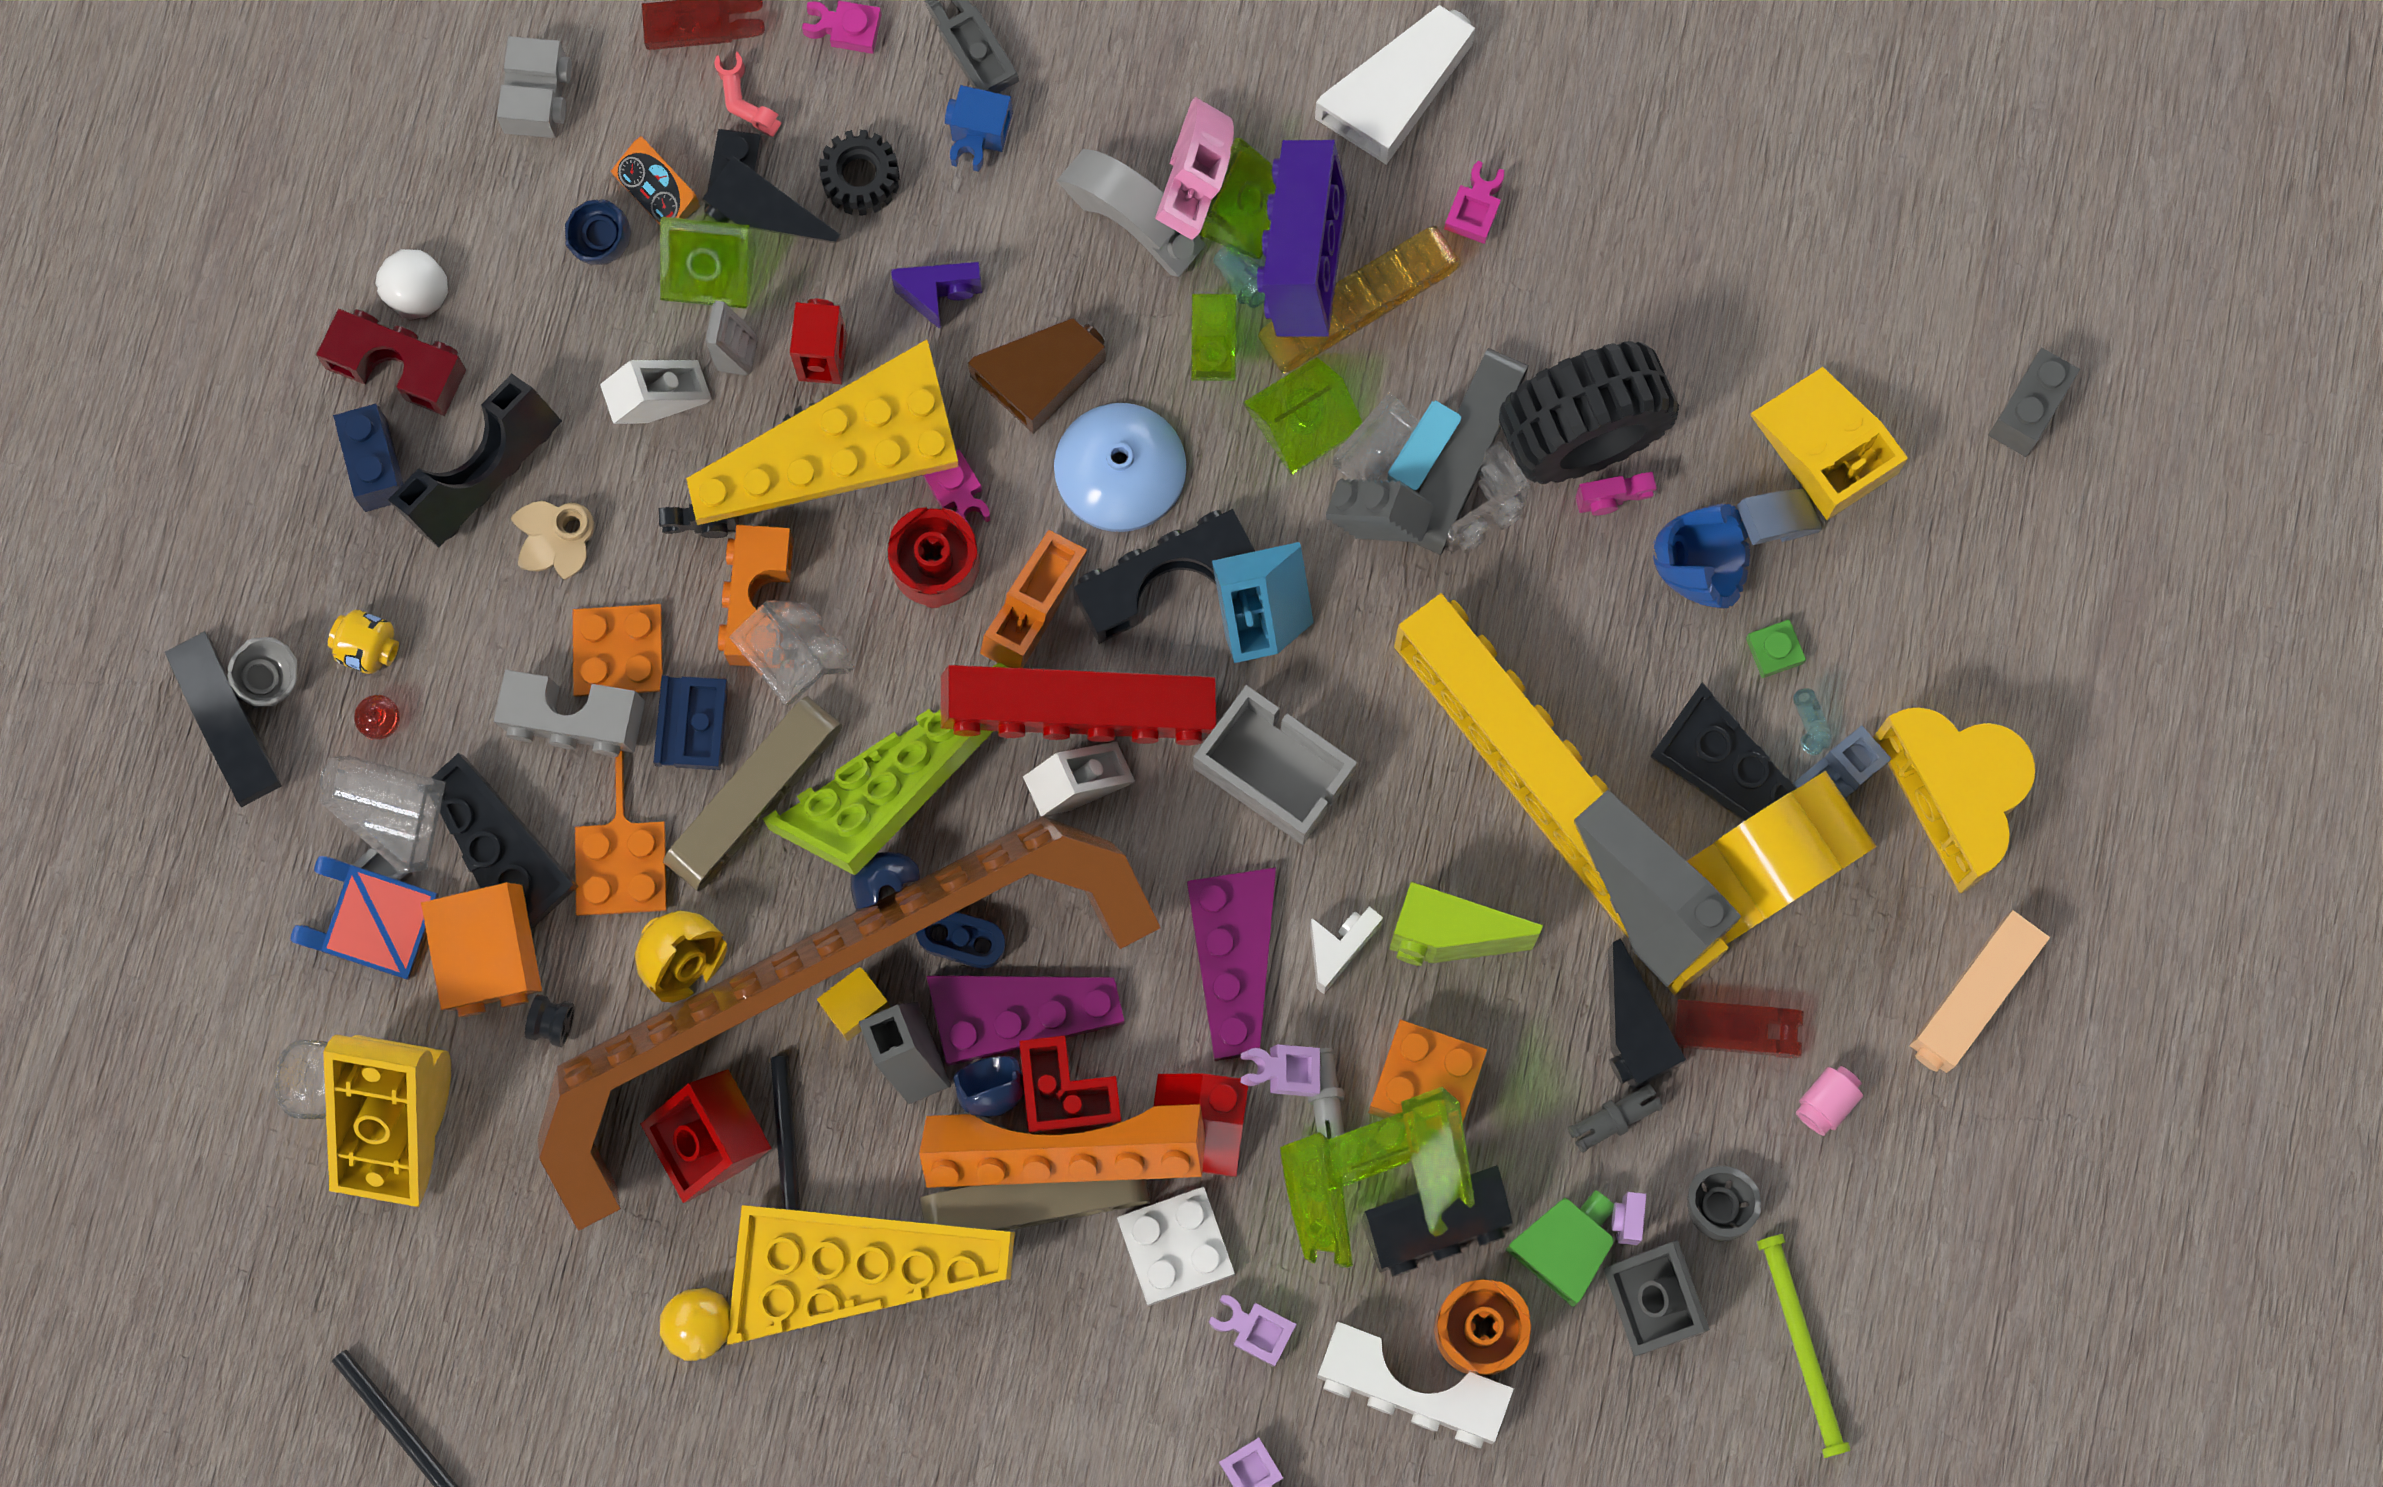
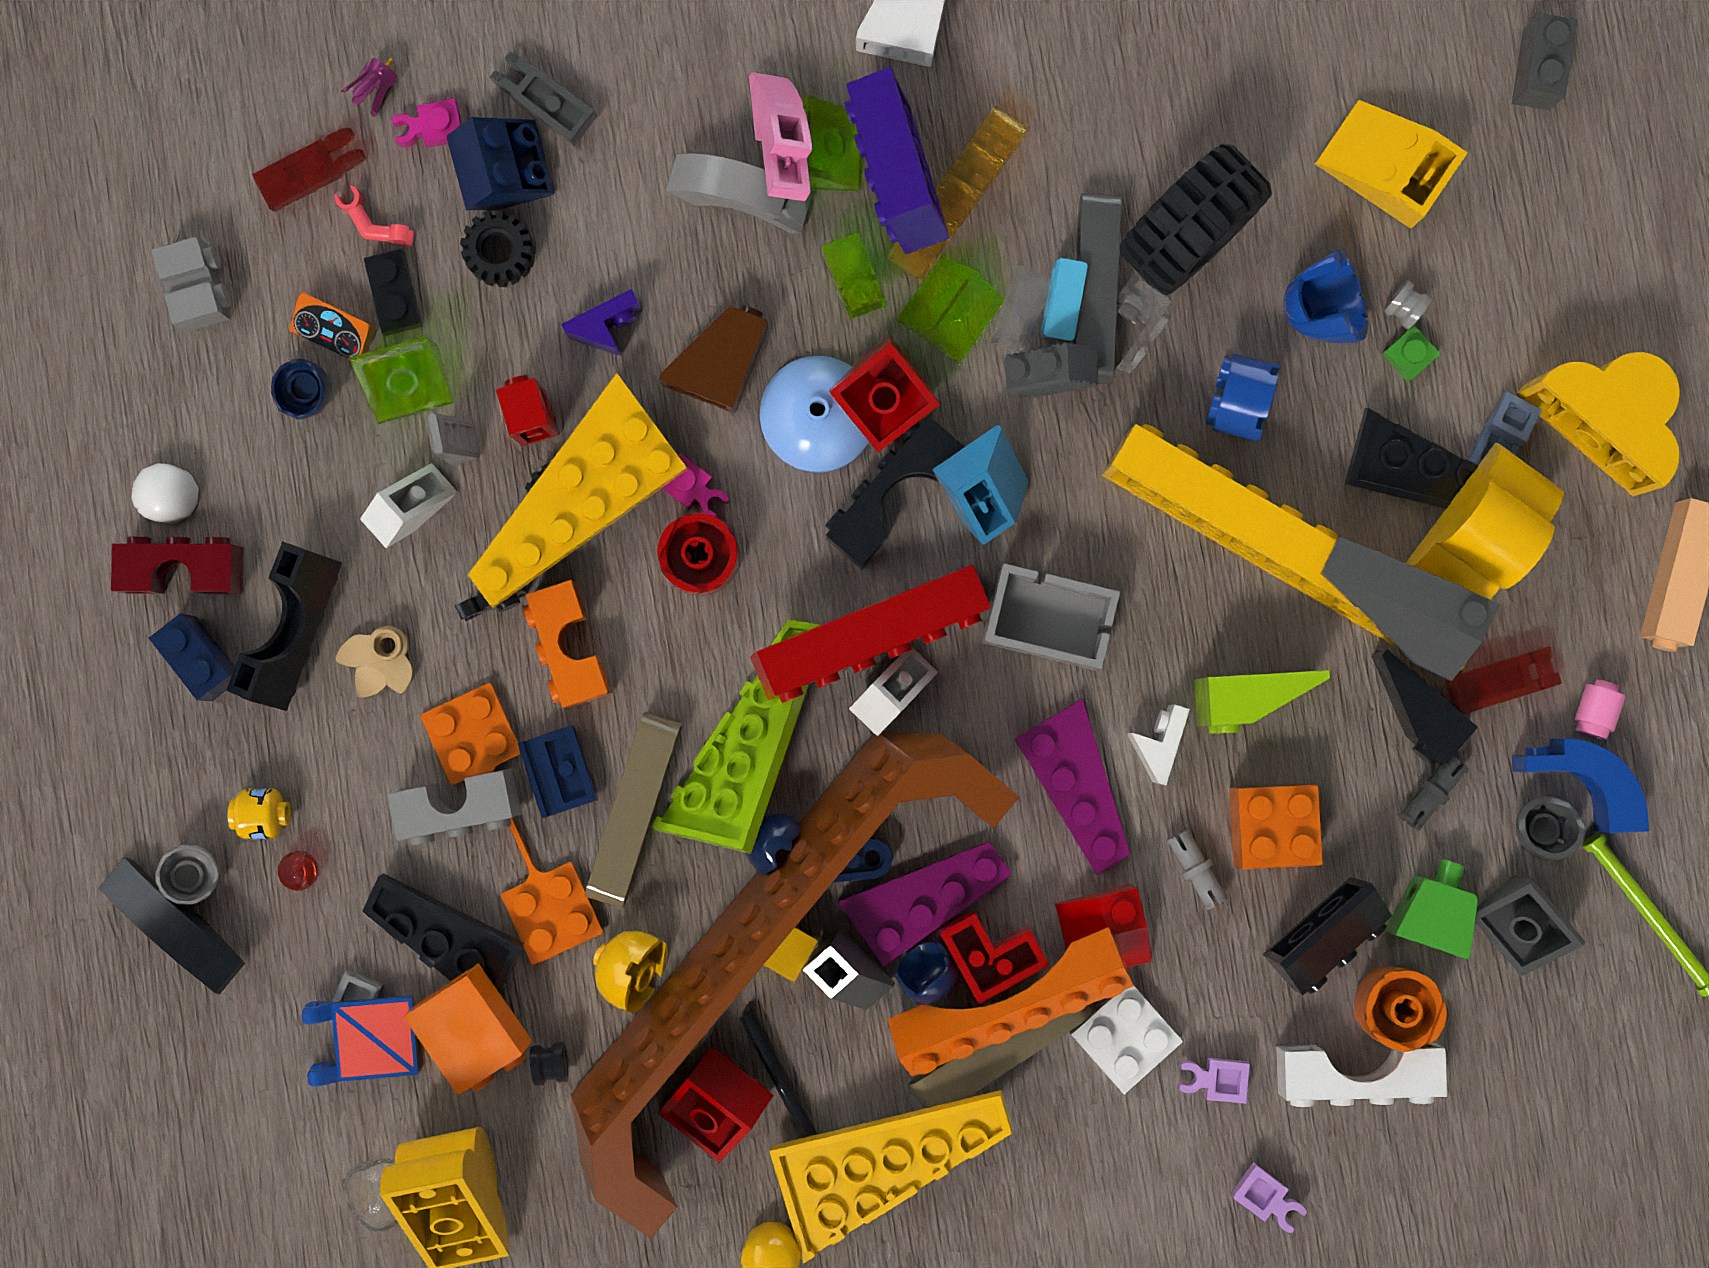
camera: 25 degrees left, 10 degrees up
(385, 808) = (337, 946): clear slope -> none
(751, 200) = (420, 312): black slope -> none
(790, 647) = (615, 680): clear bracket -> none
(898, 88) = (499, 163): none -> dark blue slope
(977, 122) = (578, 166): blue brick -> none
(1033, 601) = (794, 557): orange slope -> none
(1195, 469) = (884, 394): none -> red slope
(1240, 275) = (853, 211): clear light blue cone -> none
(1289, 1069) = (1163, 866): lavender plate -> none
(1319, 1167) = (1299, 877): clear neon green wedge -> none
(1475, 208) = (1021, 77): dark pink plate -> none
(1572, 618) = (1245, 397): none -> blue brick
(1607, 494) = (1225, 282): dark pink plate -> none
(1629, 1218) = (1485, 875): lavender plate -> none
(1779, 516) = (1375, 243): sand blue slope -> none
(1789, 594) = (1407, 304): none -> light grey wheel
(1806, 1166) = (1614, 789): none -> blue arch
(1814, 722) = (1467, 404): clear light blue arm -> none

